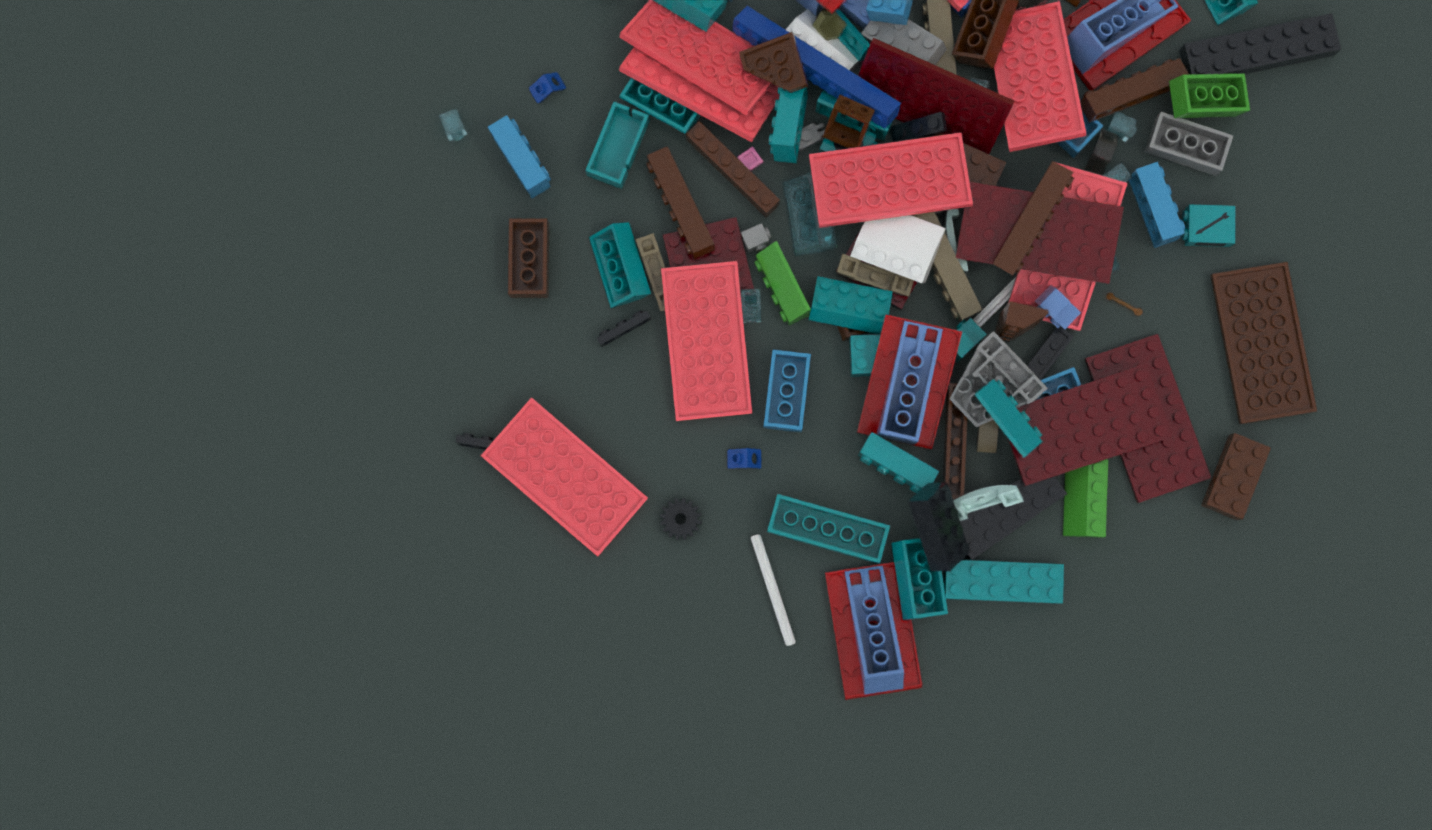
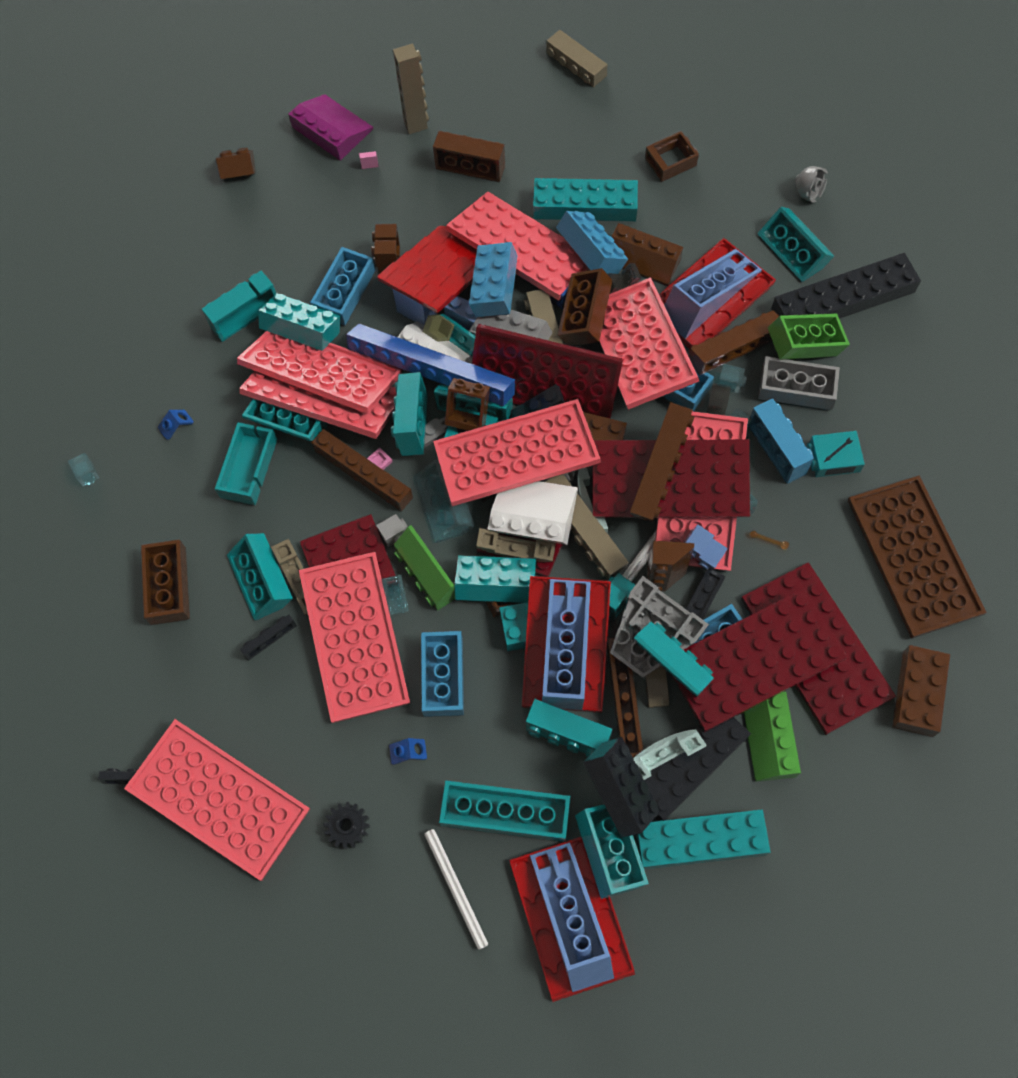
camera: 10 degrees left, 15 degrees down
(518, 154) = (150, 486): dark azure brick -> none
(680, 202) = (314, 508): reddish brown brick -> none
(776, 63) = (390, 363): reddish brown plate -> none

